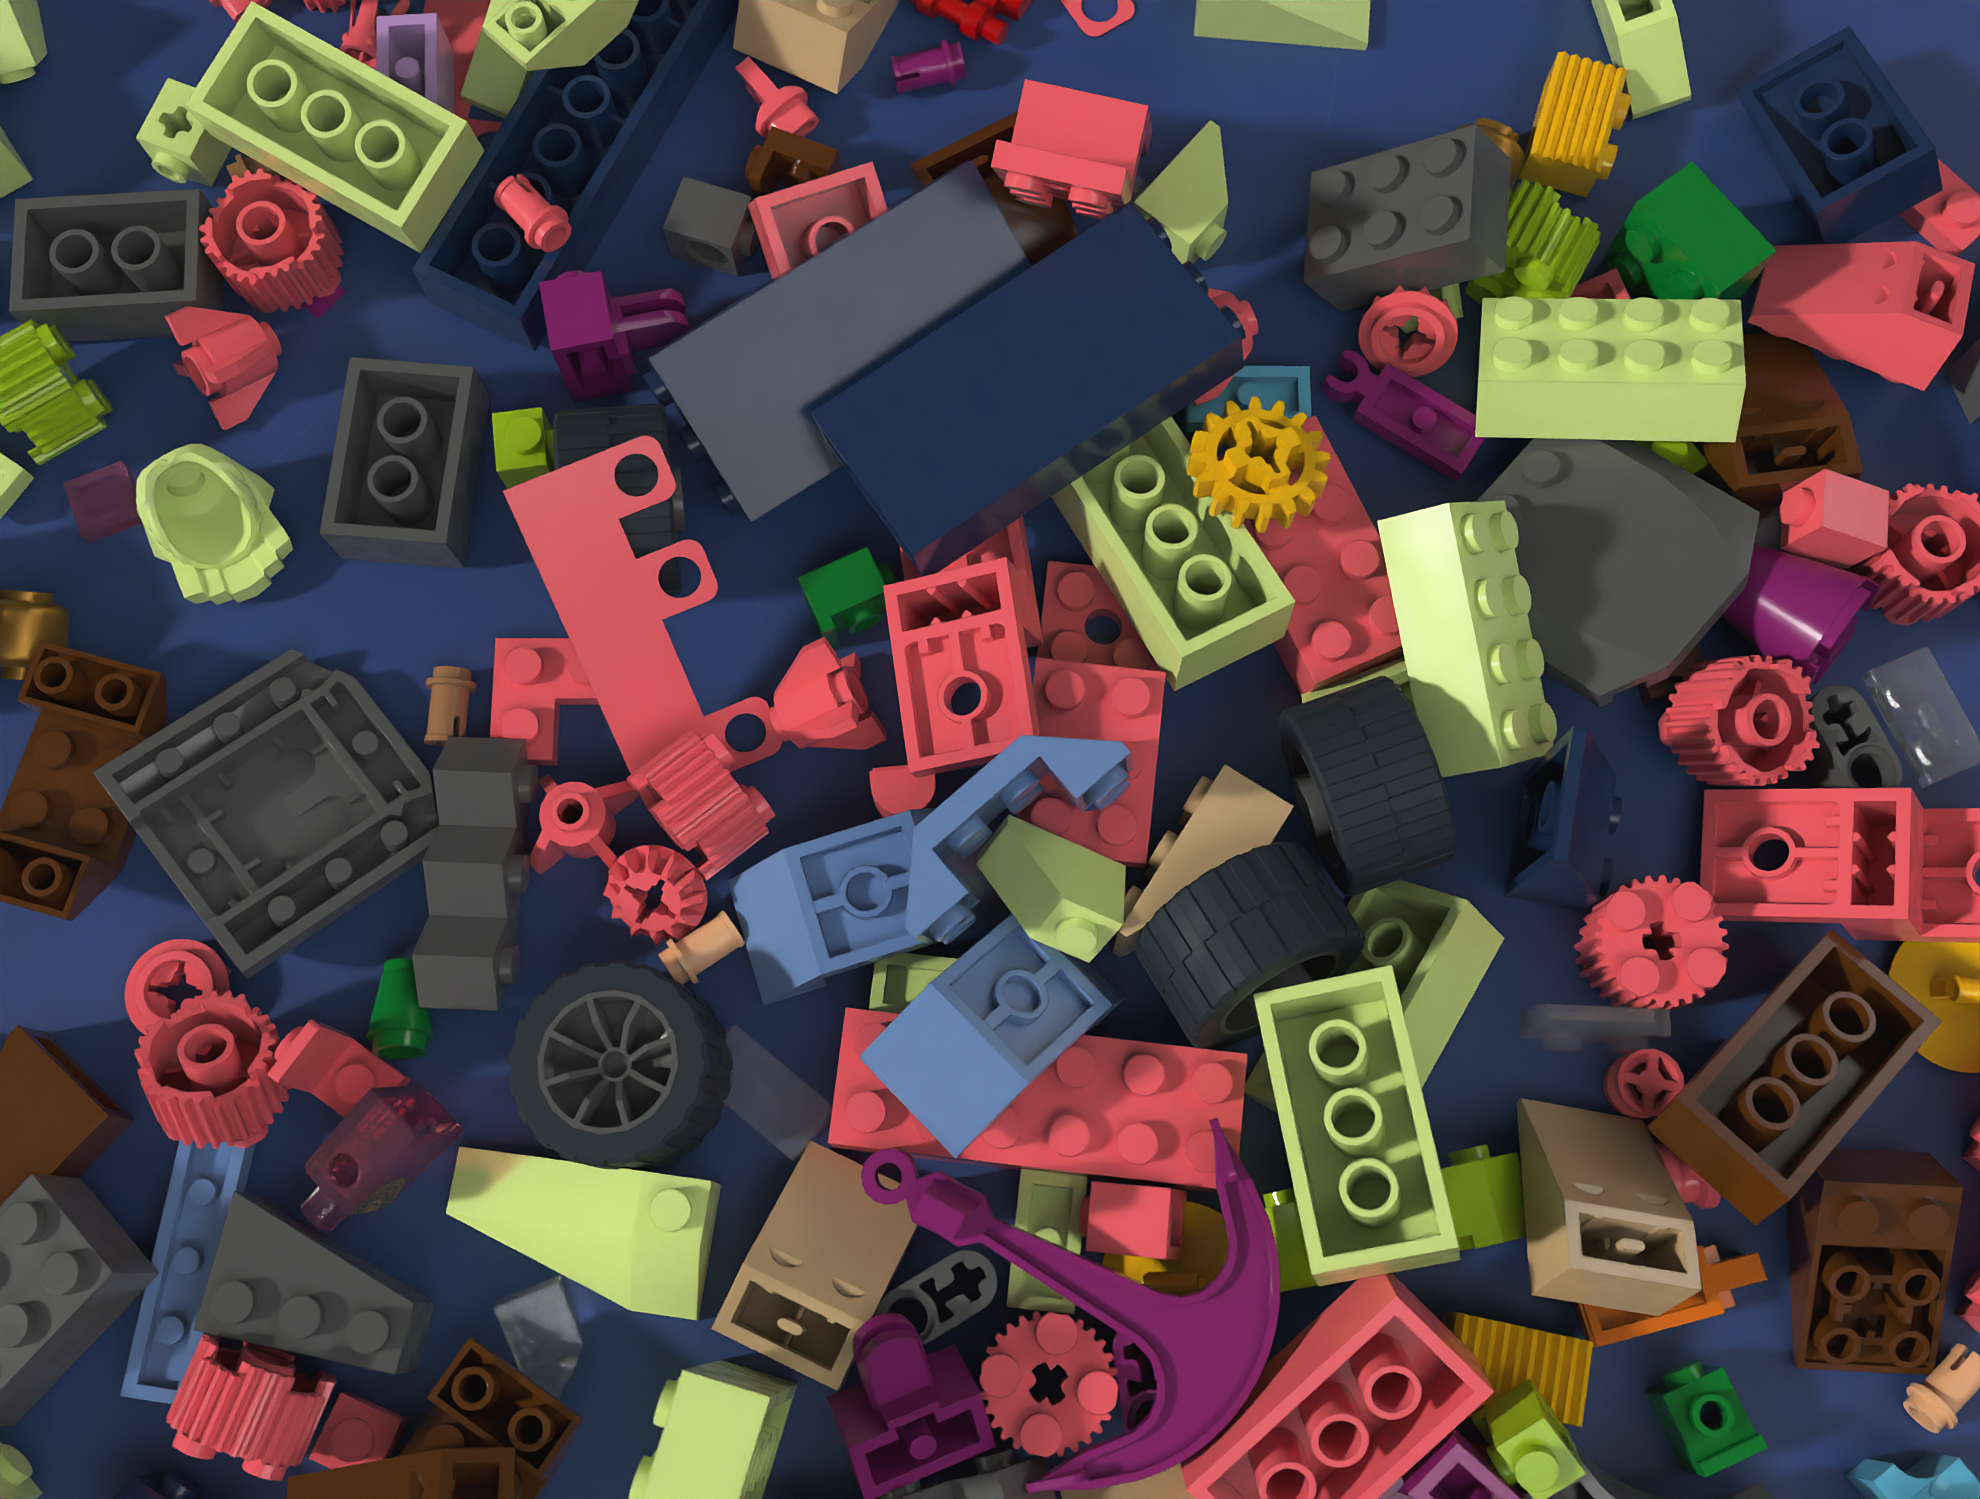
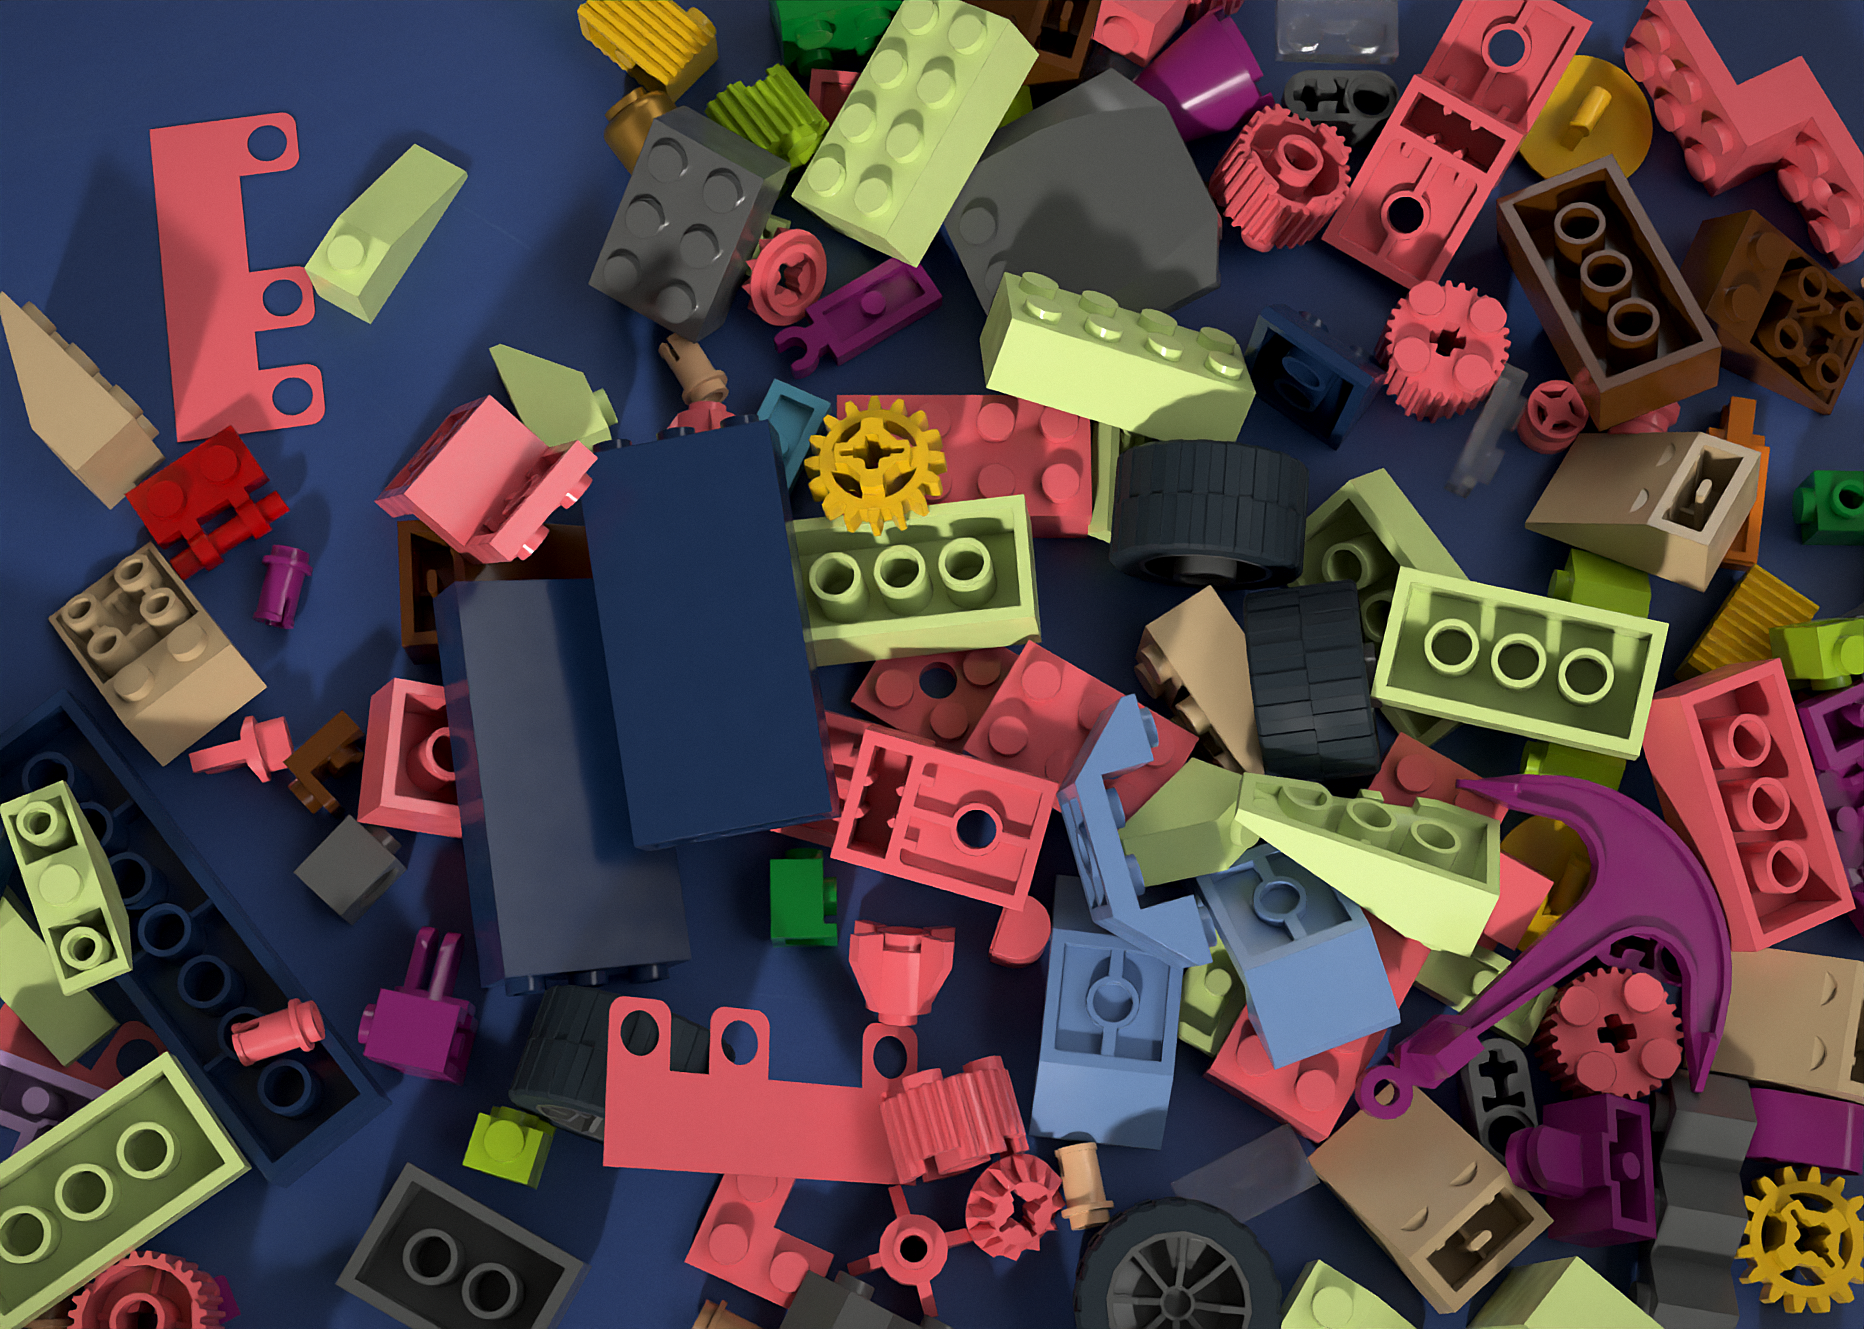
camera: 70 degrees left, 0 degrees up
(1106, 1090) = (1413, 867): none -> yellowish green wedge
(1282, 302) = (694, 371): none -> light nougat pin

